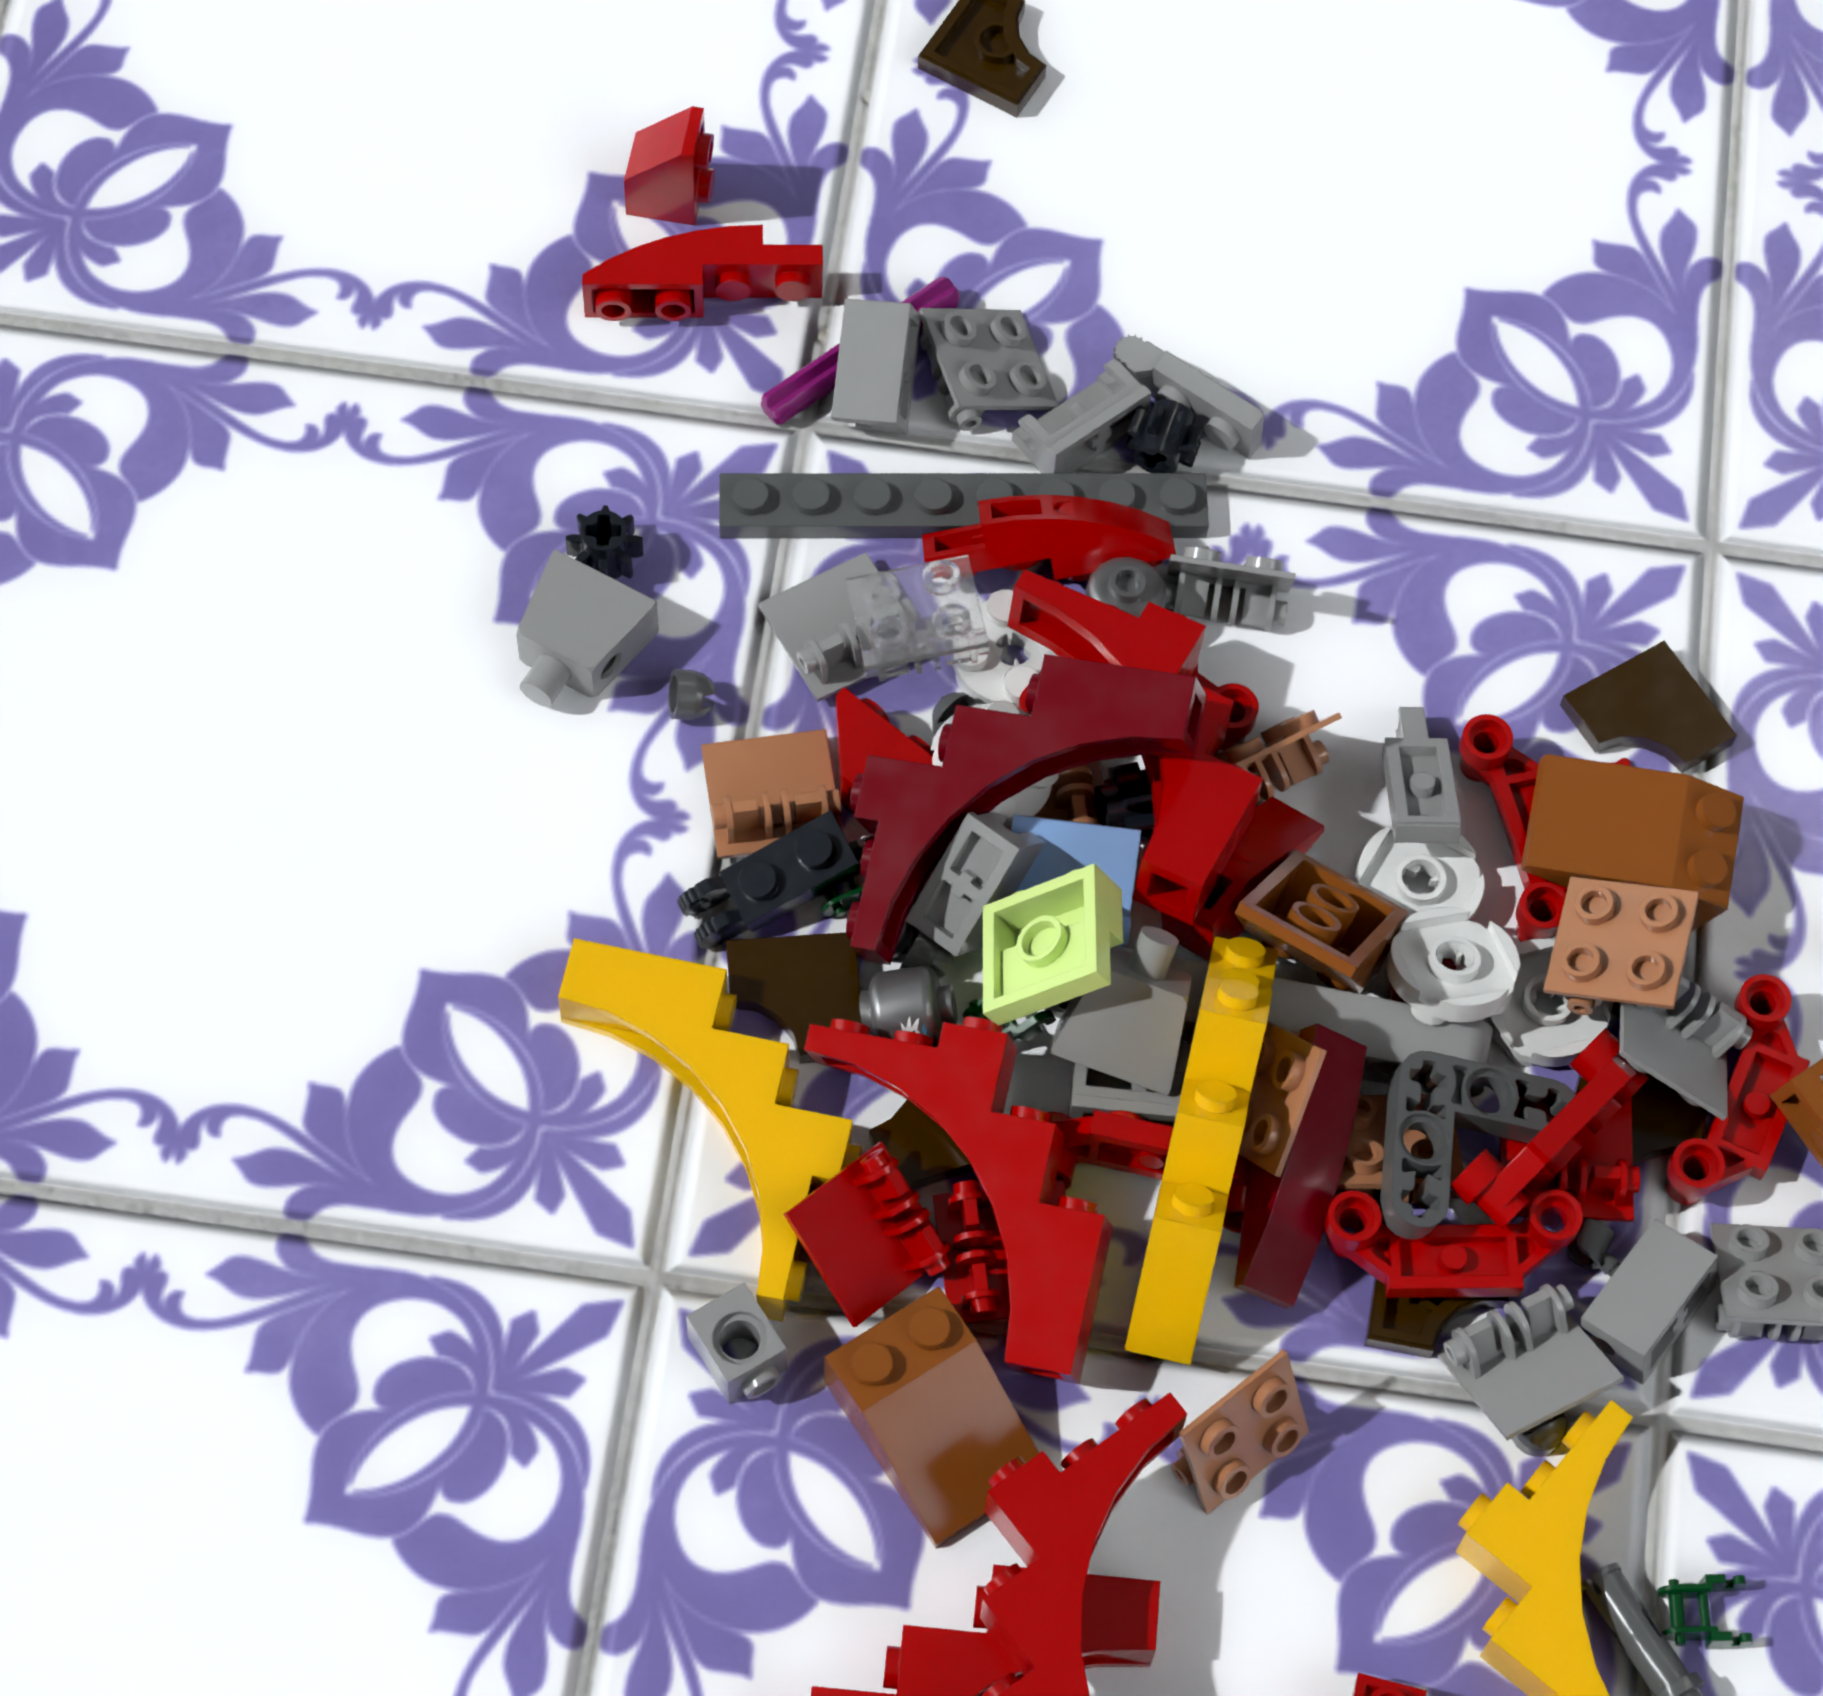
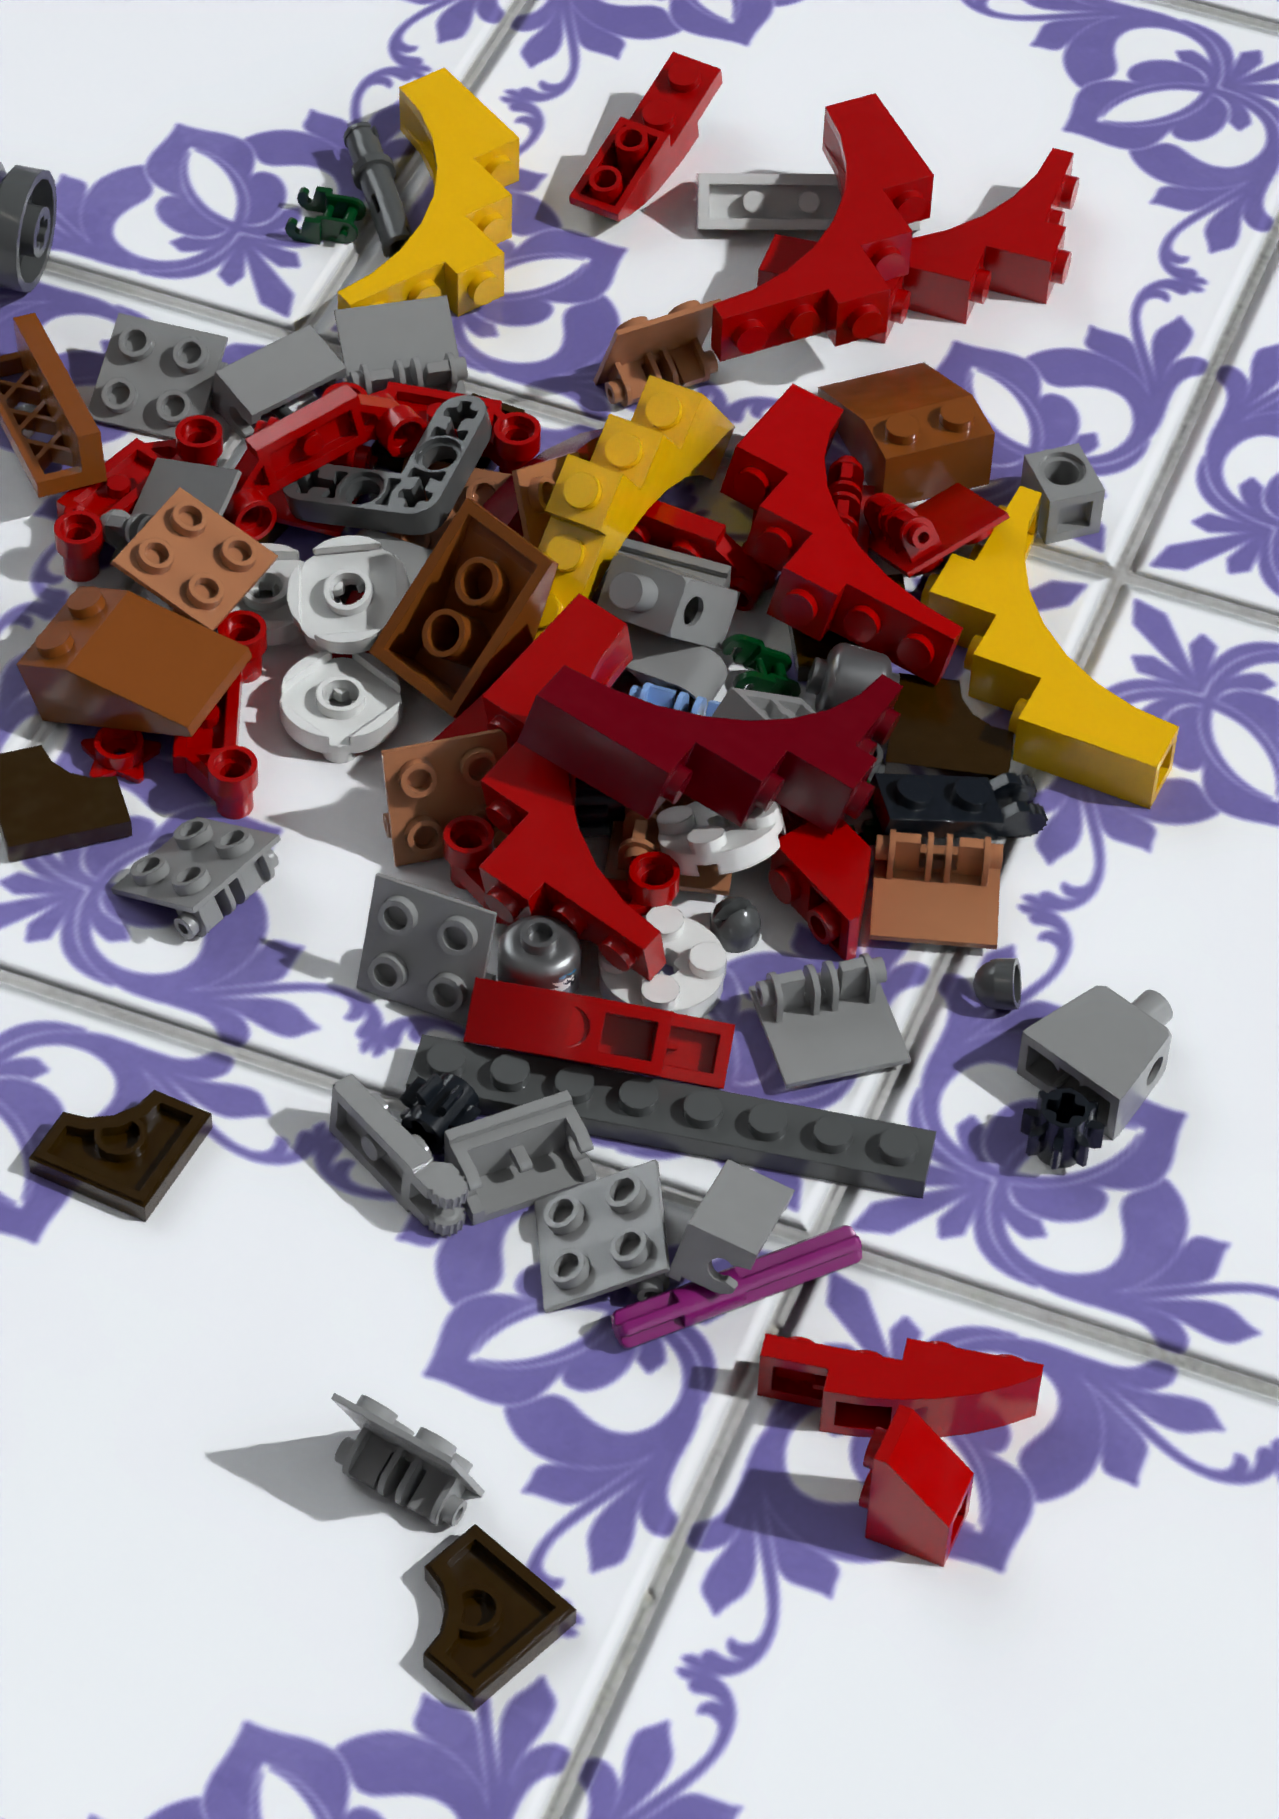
camera: 165 degrees left, 15 degrees down
(917, 617) = (759, 962): clear hinge -> none
(1049, 943) = (723, 619): yellowish green plate -> none
(1087, 117) = (389, 1457): none -> light grey hinge
(1420, 783) = (310, 754): light grey hinge -> none
(1423, 369) = (124, 1156): none -> dark brown tile
(1478, 653) = (203, 872): none -> light grey hinge

